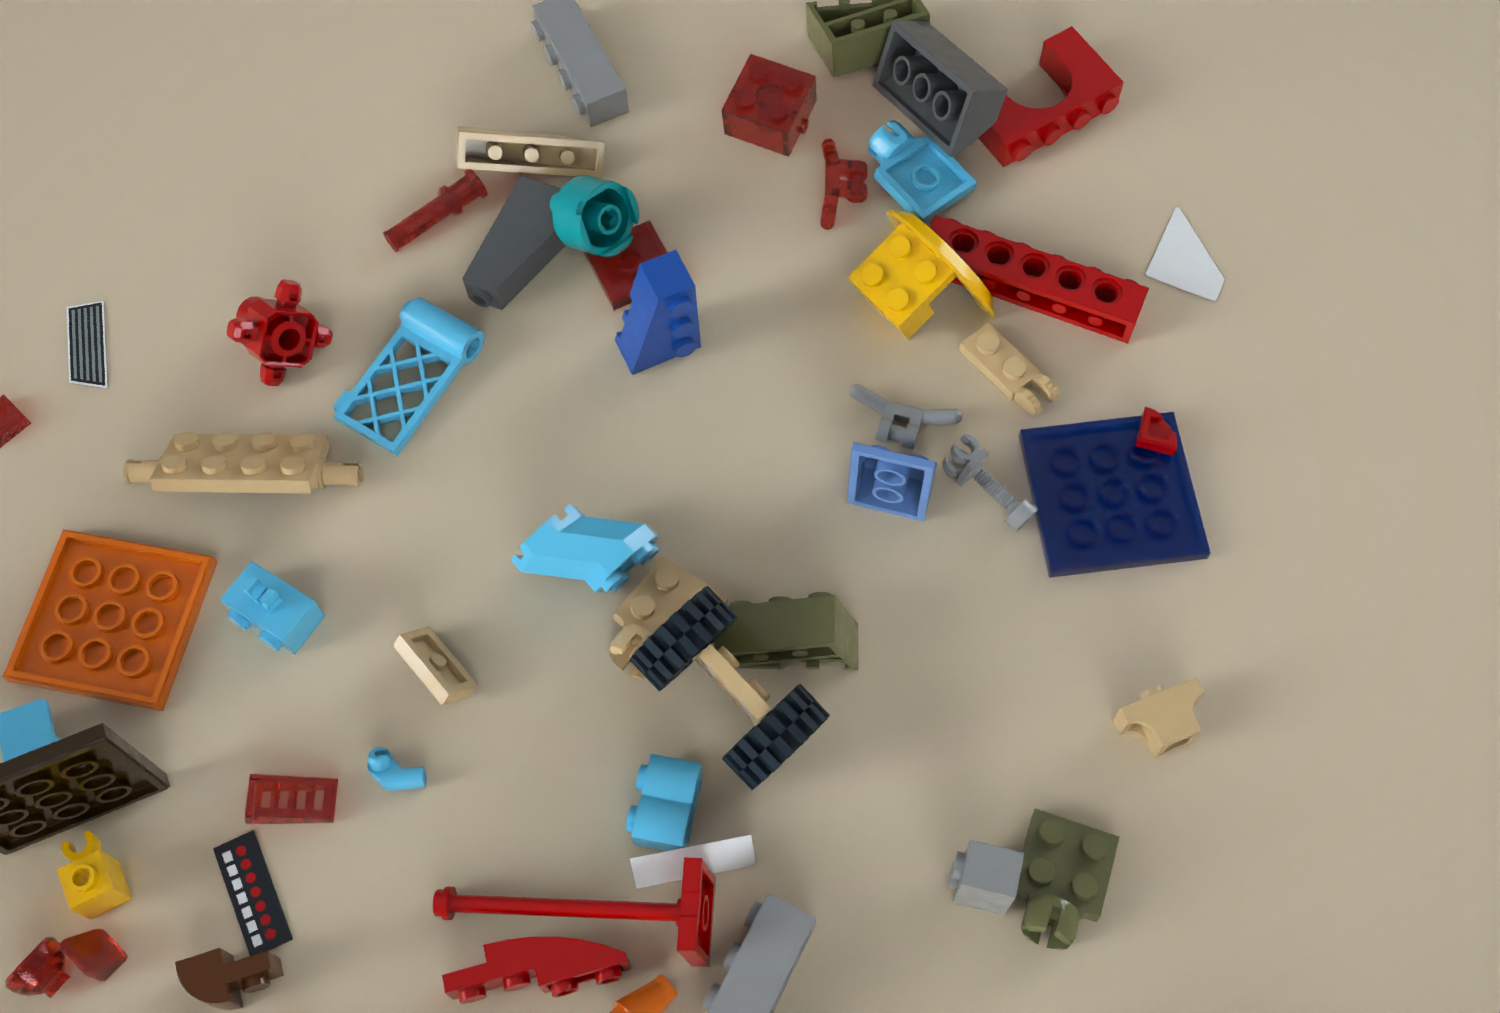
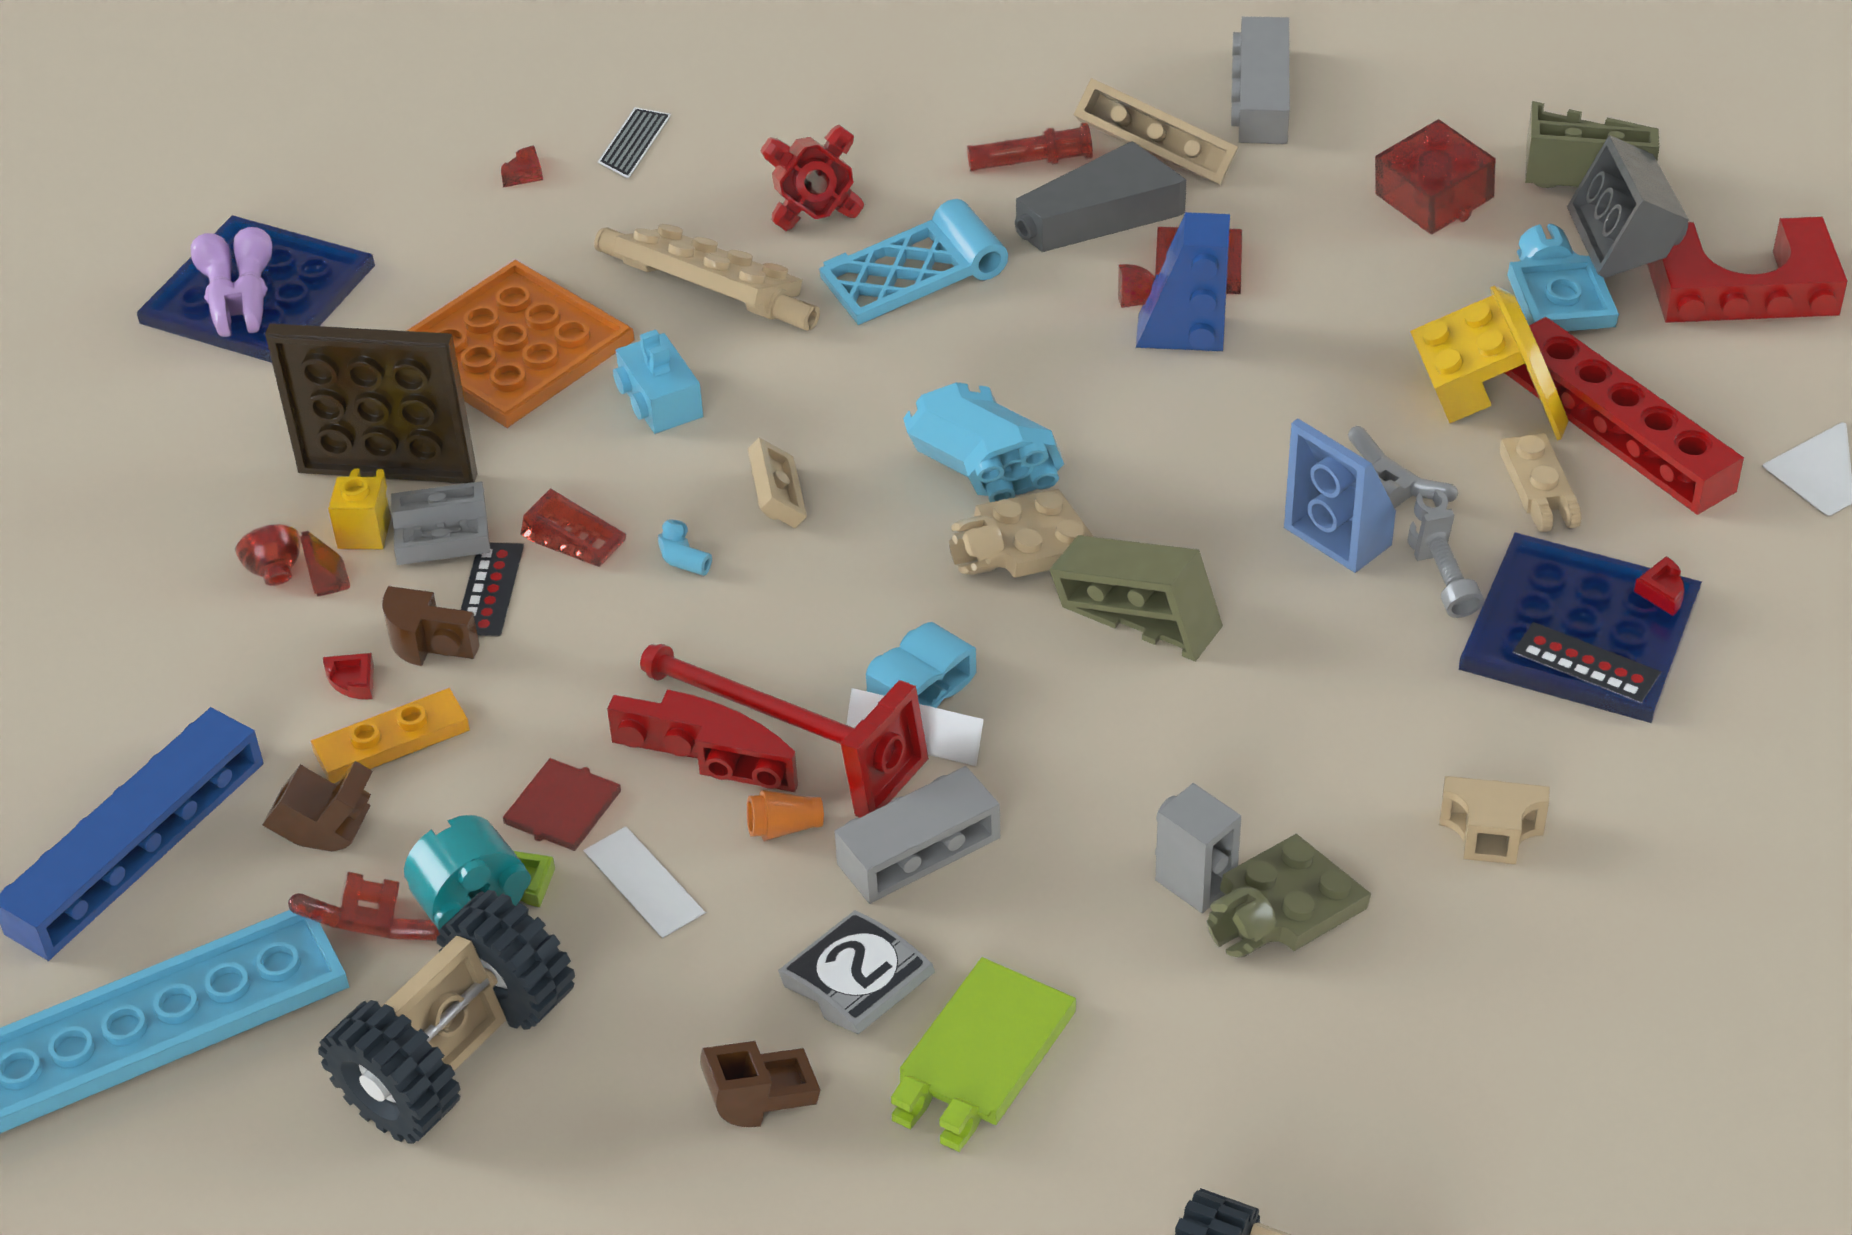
camera: 30 degrees right, 20 degrees down
(168, 850) = (440, 523): none -> light grey slope
(594, 215) = (1166, 173): teal brick -> none
(603, 318) = (1134, 285): none -> clear red tile
(690, 637) = (1064, 635): black plate -> none
(853, 190) = (1471, 265): clear red piece -> none
(1141, 531) = (1587, 662): none -> black sticker

